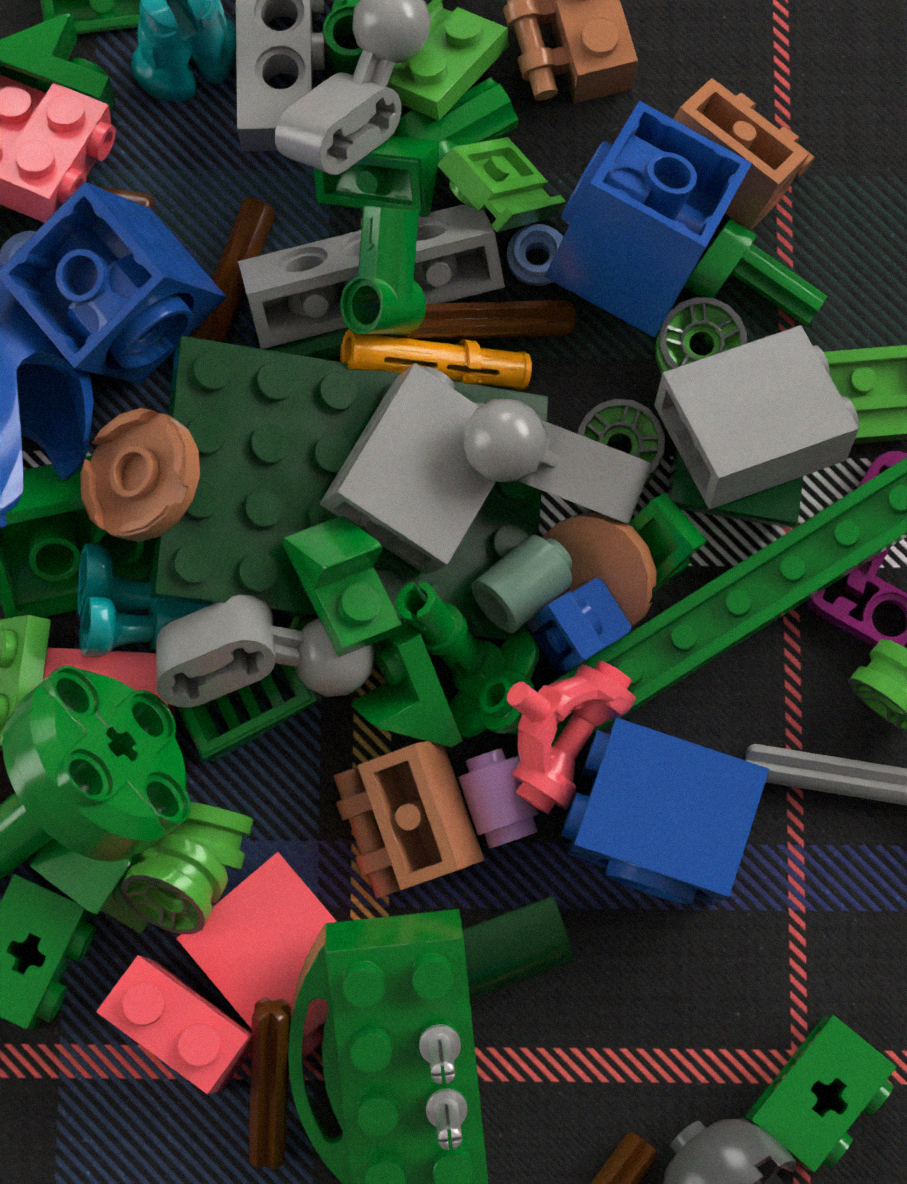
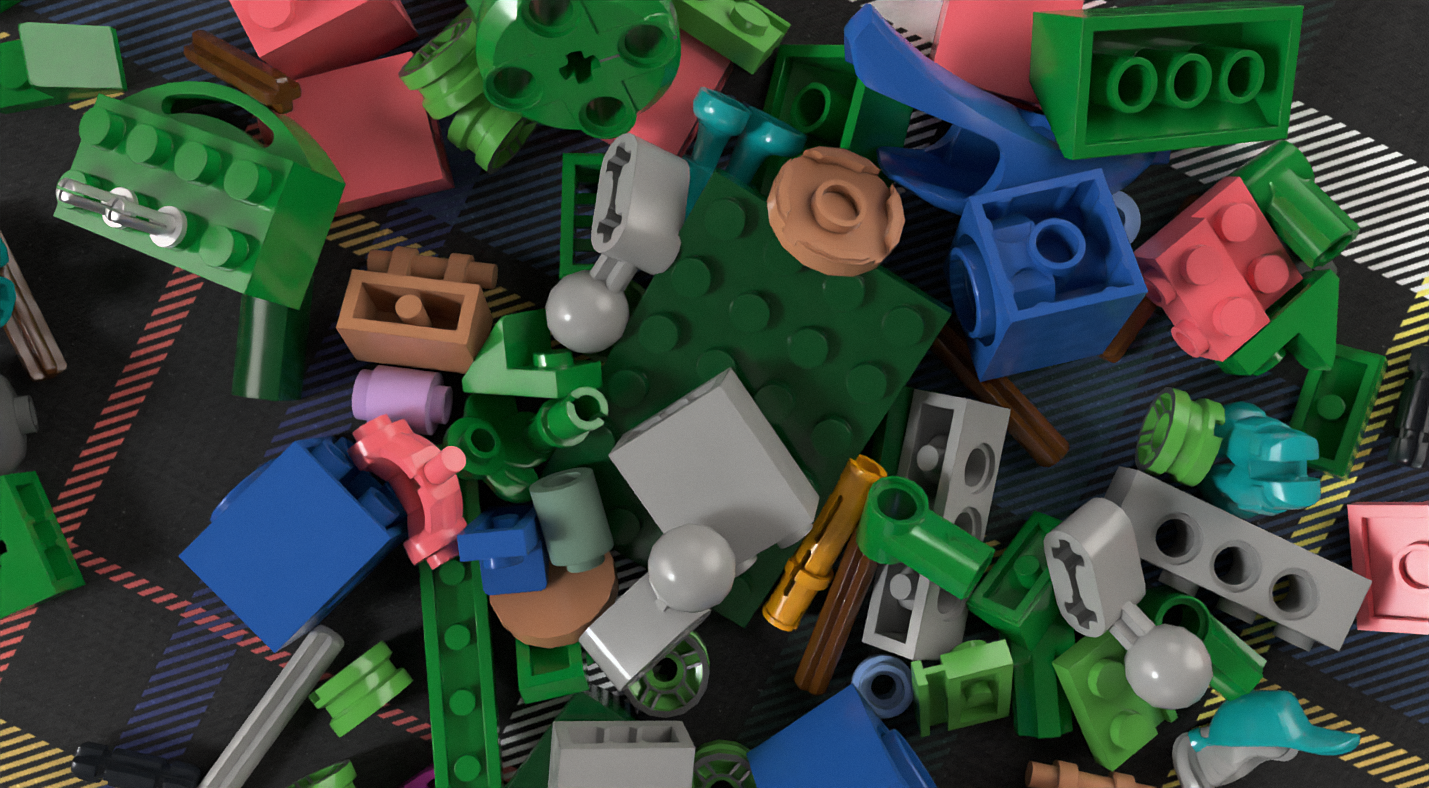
camera: 120 degrees right, 10 degrees up
(191, 110) = (1179, 437): none -> bright green wheel
(341, 582) = (641, 349): green slope -> none
(776, 701) = (360, 689): none -> bright green wheel

